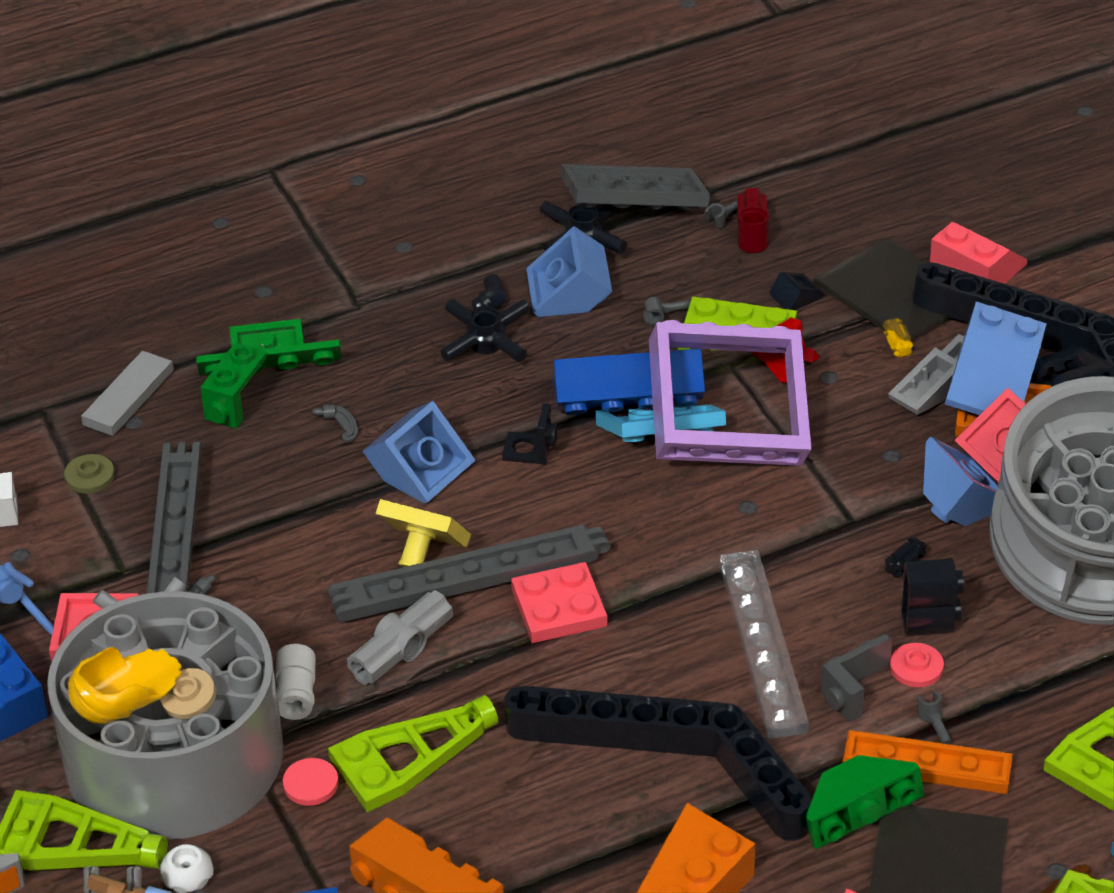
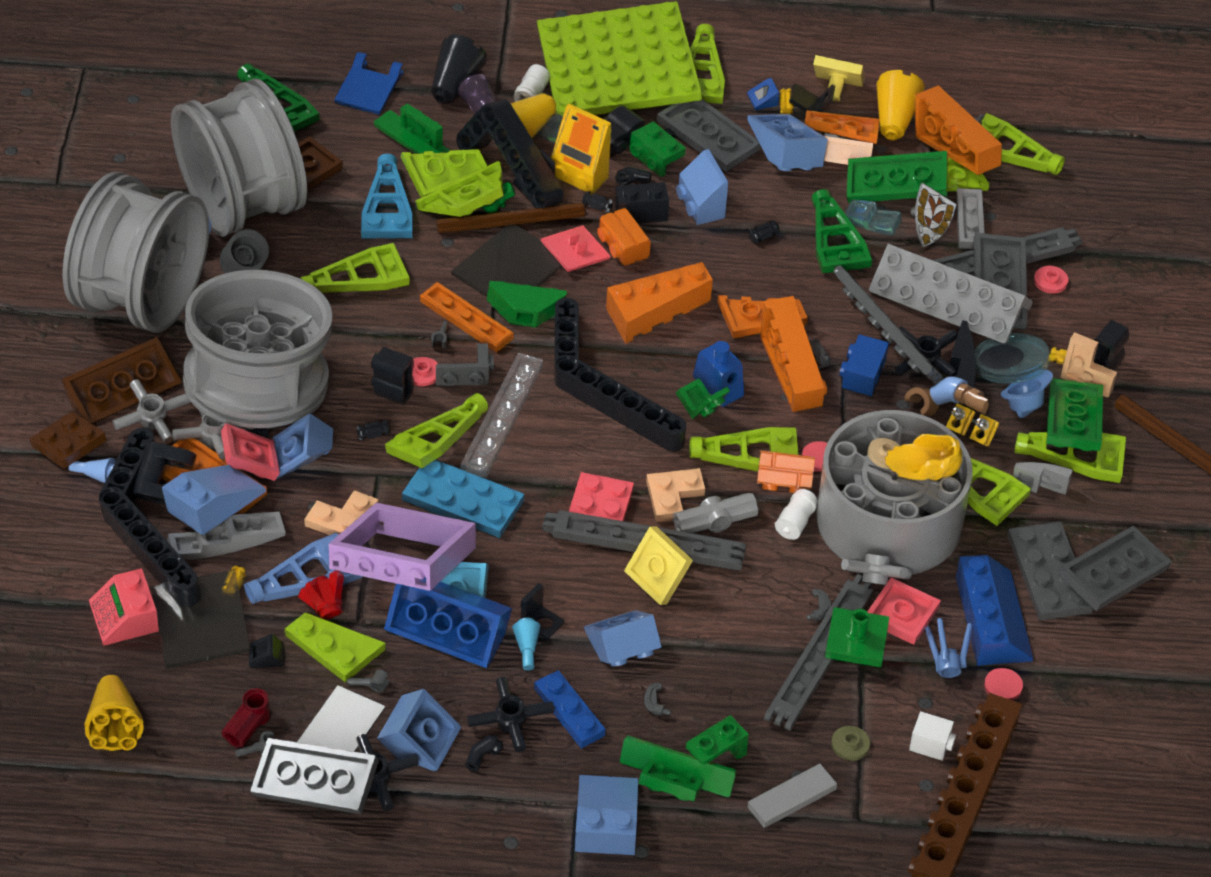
camera: 155 degrees left, 5 degrees up
(132, 552) = (857, 637): none -> green tile
(318, 288) = (606, 815): none -> medium blue slope
(340, 719) = (785, 470): none -> orange brick
(429, 373) = (570, 709): none -> blue plate
(482, 654) = (668, 488): none -> light nougat plate
(510, 773) = (698, 400): none -> green bracket
(517, 813) = (720, 369): none -> blue torso
(525, 409) = (526, 634): none -> medium azure cone
(660, 257) = (342, 720): none -> white sticker
(702, 531) = (463, 497): none -> dark azure plate
(825, 408) = (272, 589): none -> medium blue plate
(835, 548) = (419, 452): none -> lime plate
(840, 445) = (333, 520): none -> light nougat plate
(884, 159) = (113, 717): none -> yellow cone

